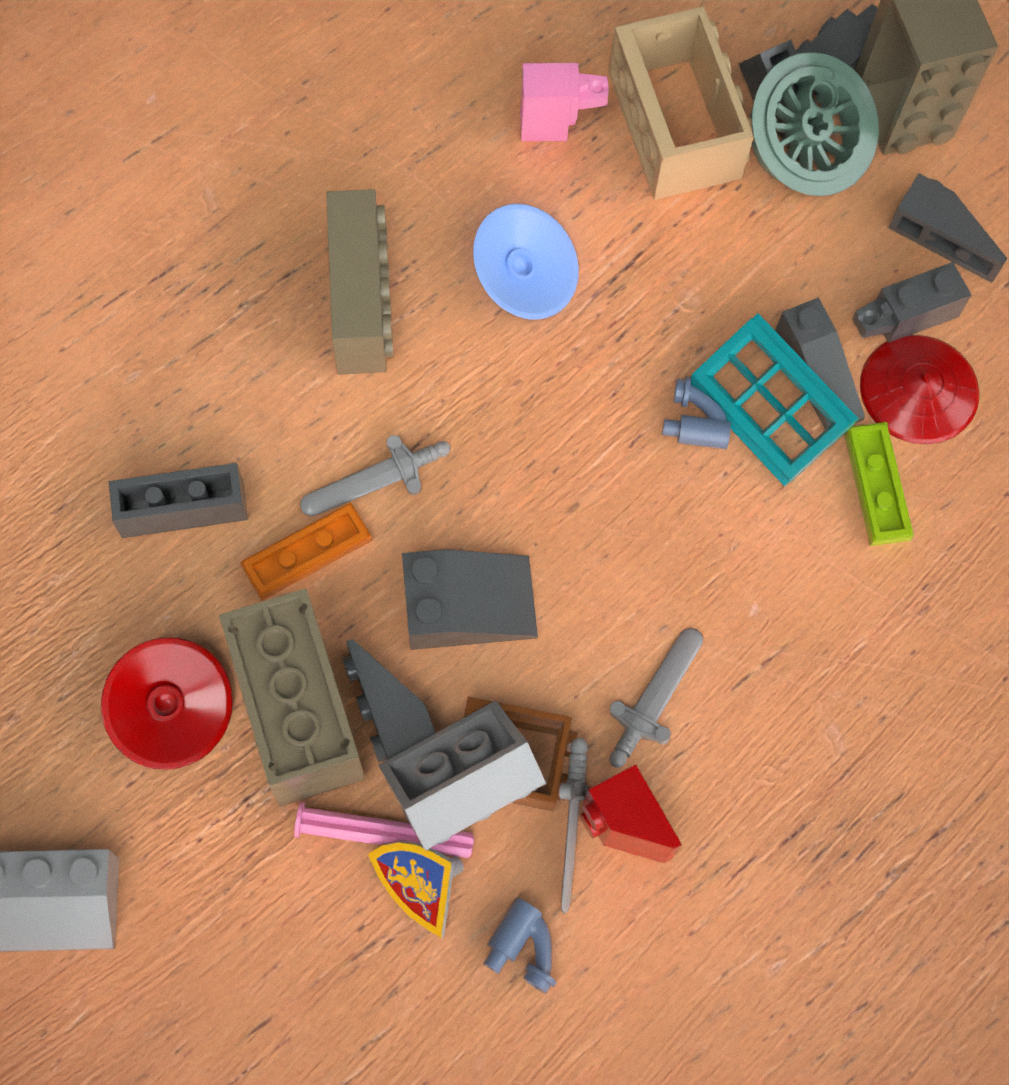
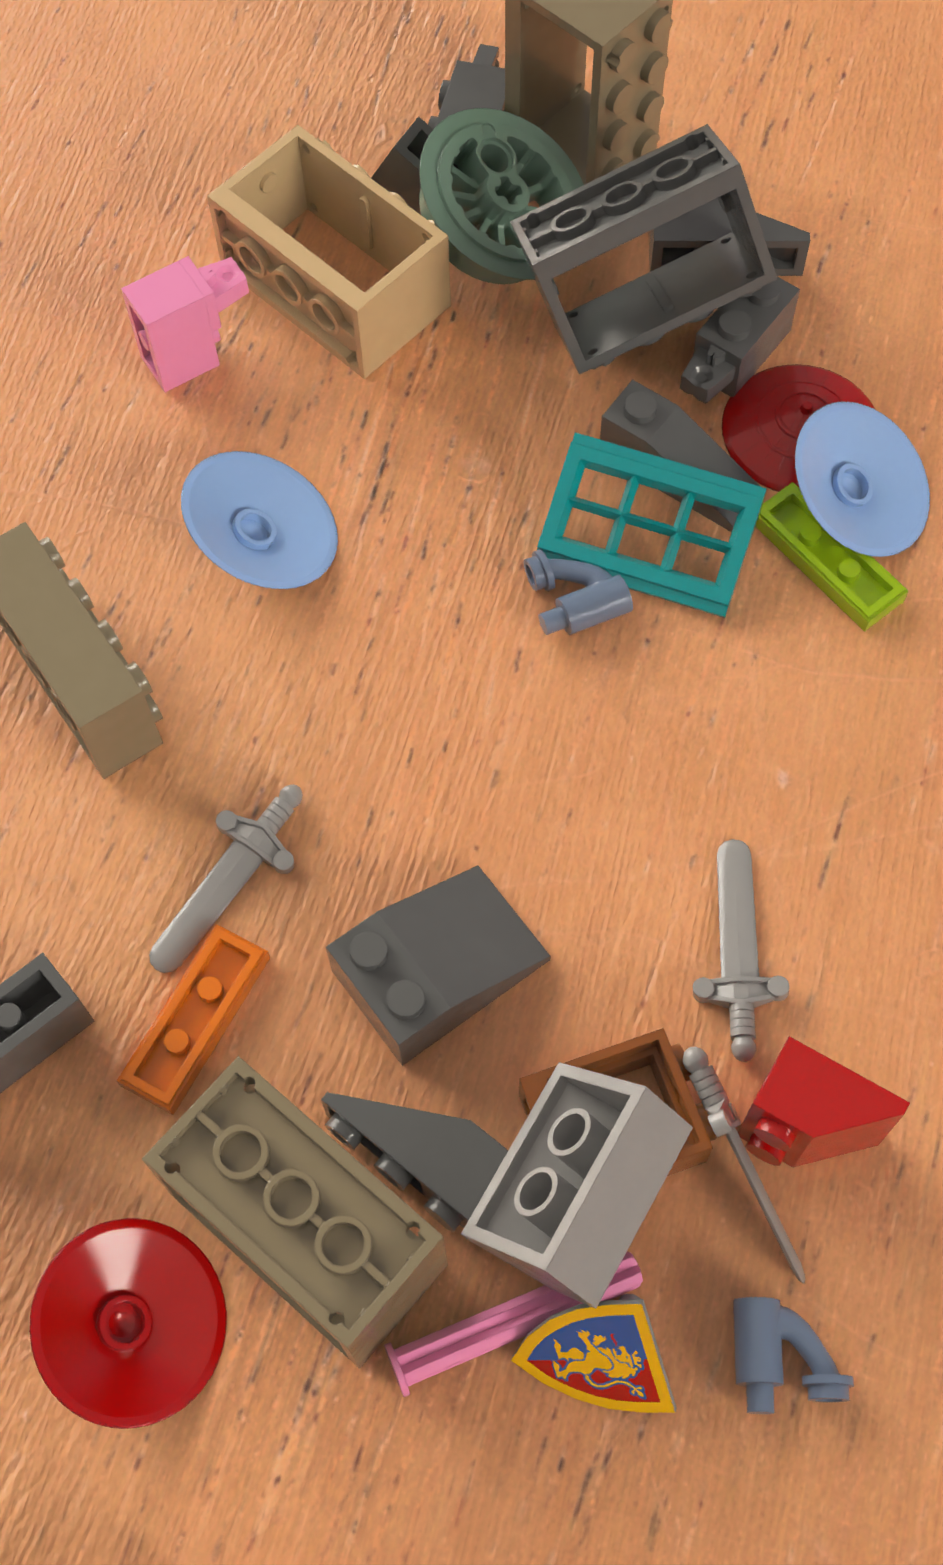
camera: 25 degrees left, 5 degrees down
(875, 181) = (626, 206): none -> dark grey hose
(931, 445) = (862, 479): none -> light blue hat

